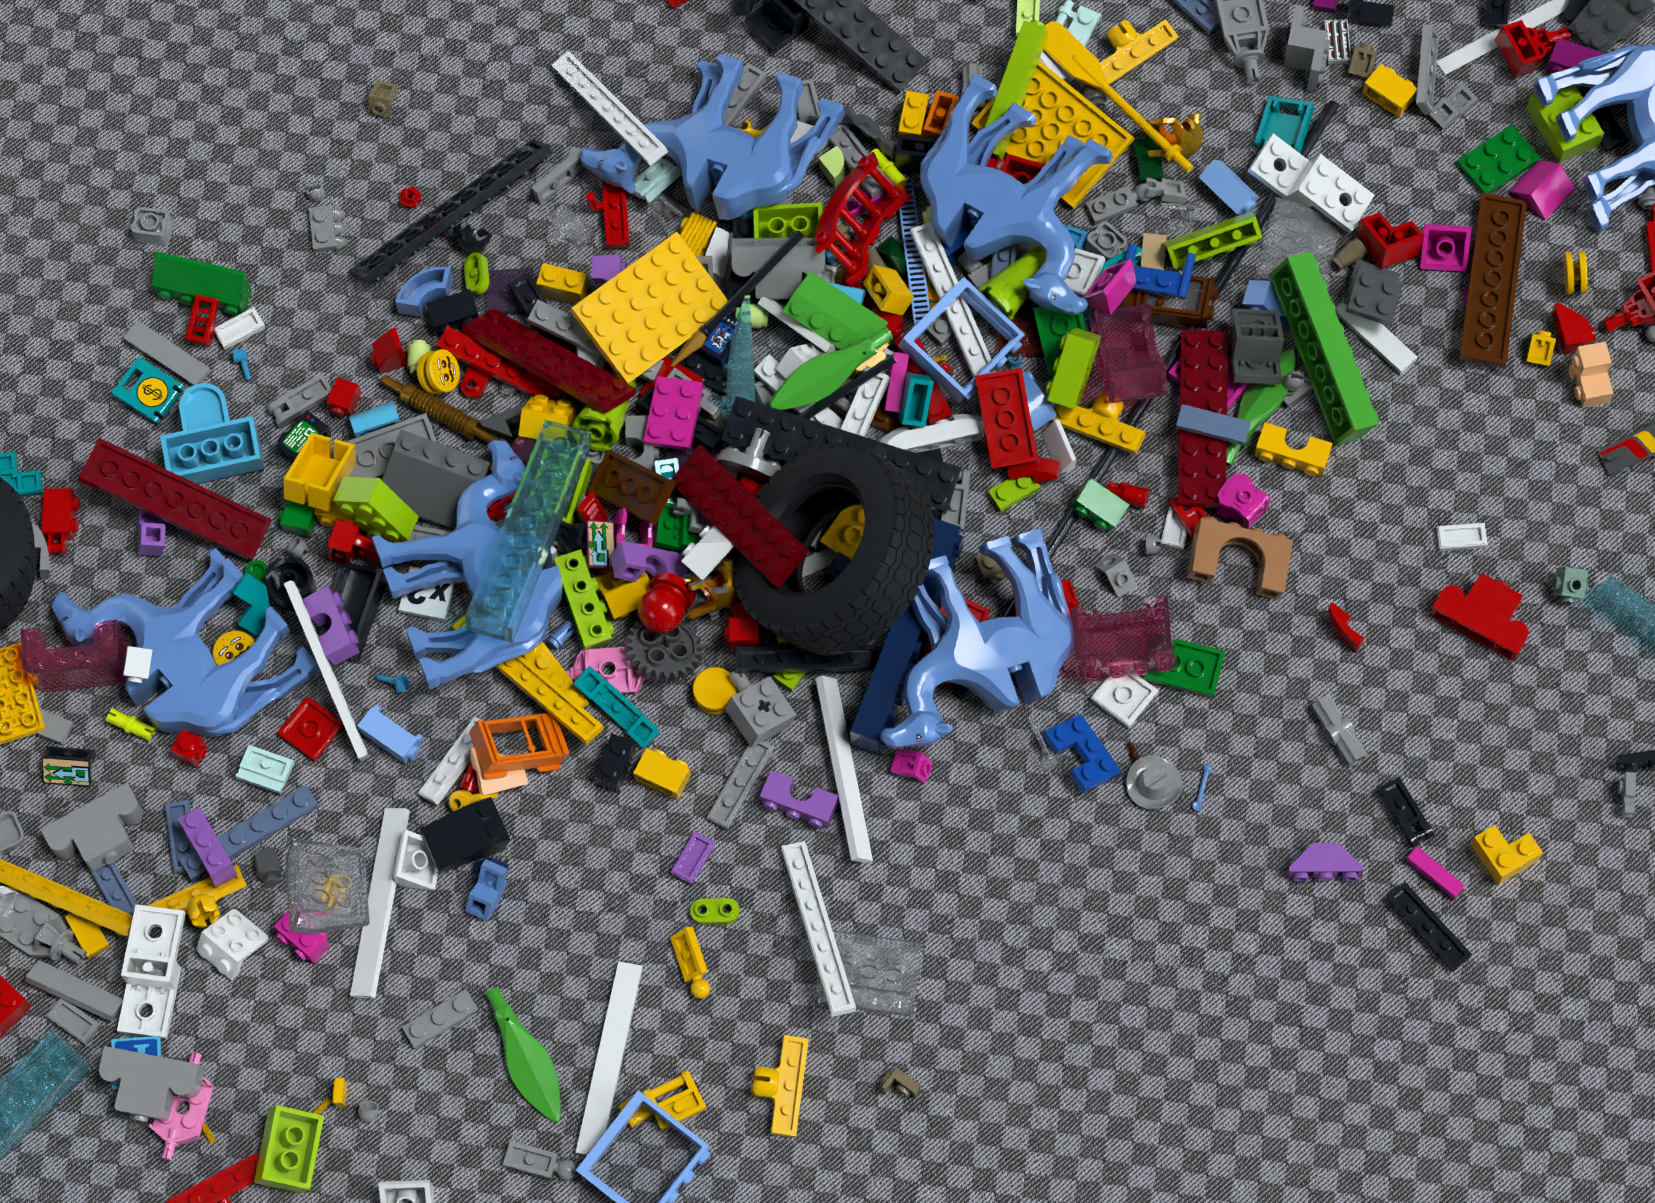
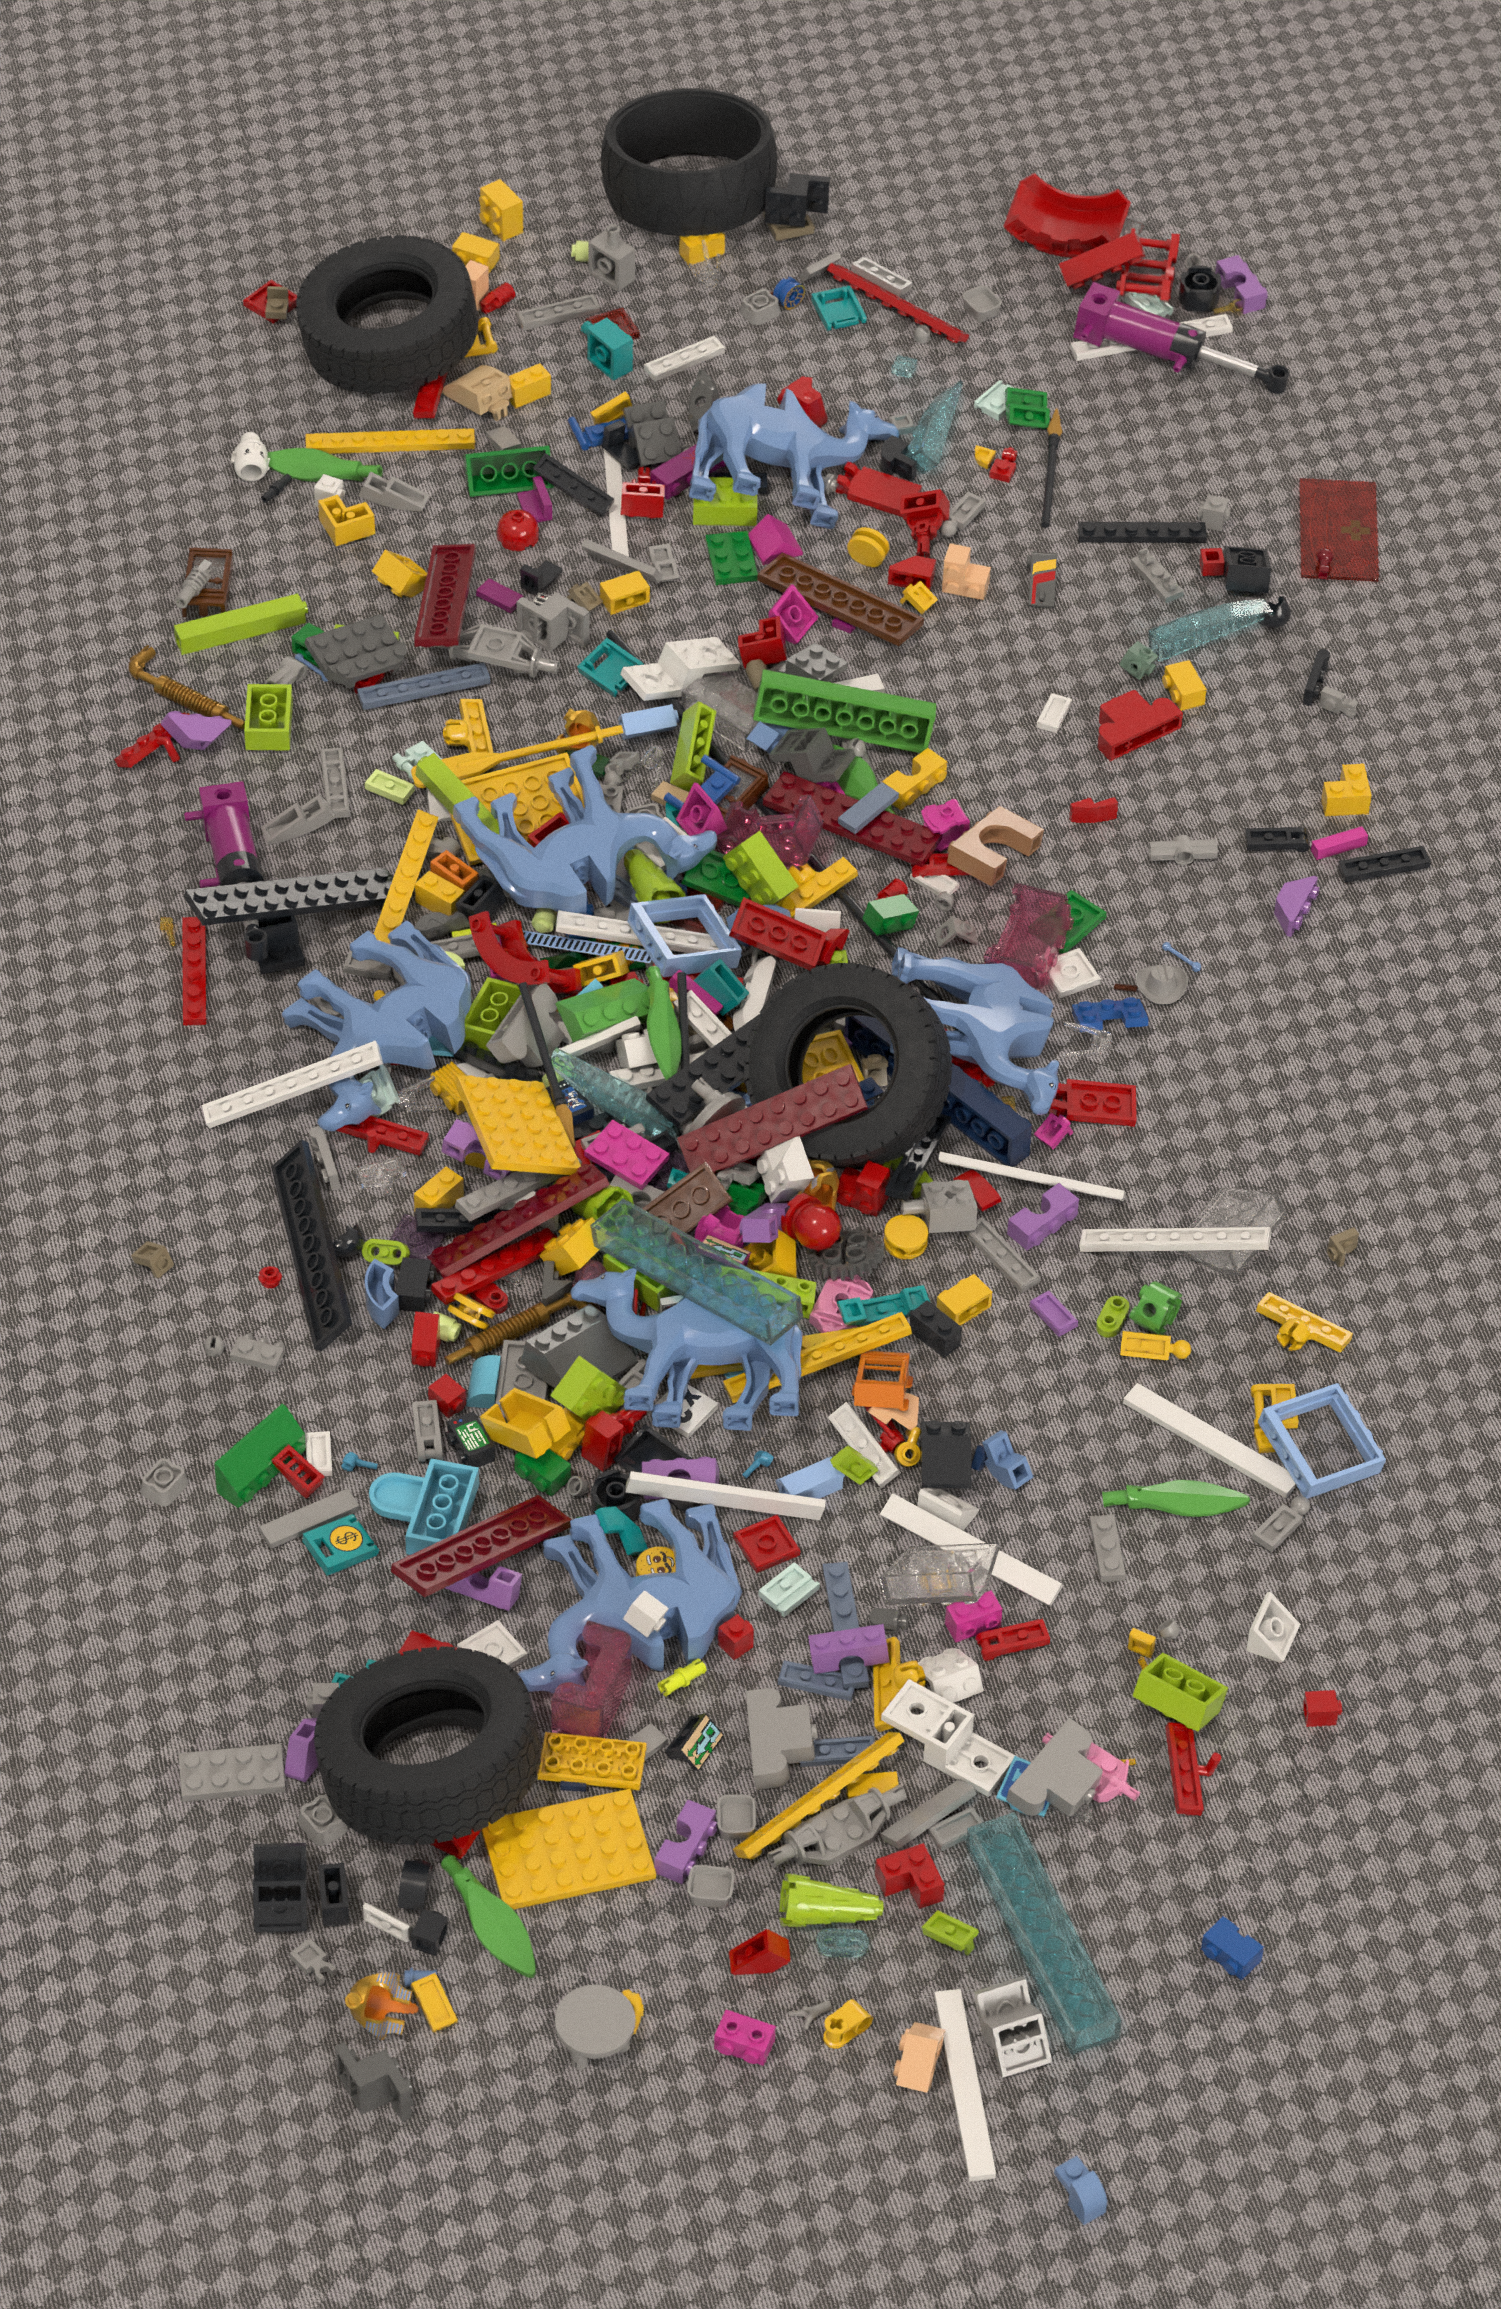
camera: 70 degrees left, 20 degrees down
(94, 561) = (497, 1642): none -> white tile
(297, 981) = (1013, 1639): none -> red plate
(416, 763) = (854, 1465): none -> lime plate
(729, 945) = (1156, 1308): none -> bright green brick
(803, 728) = (982, 1190): none -> red slope
(909, 79) = (406, 874): none -> yellow plate
(969, 787) = (1096, 1102): none -> red tile
(1565, 640) = (1184, 685): none -> yellow brick

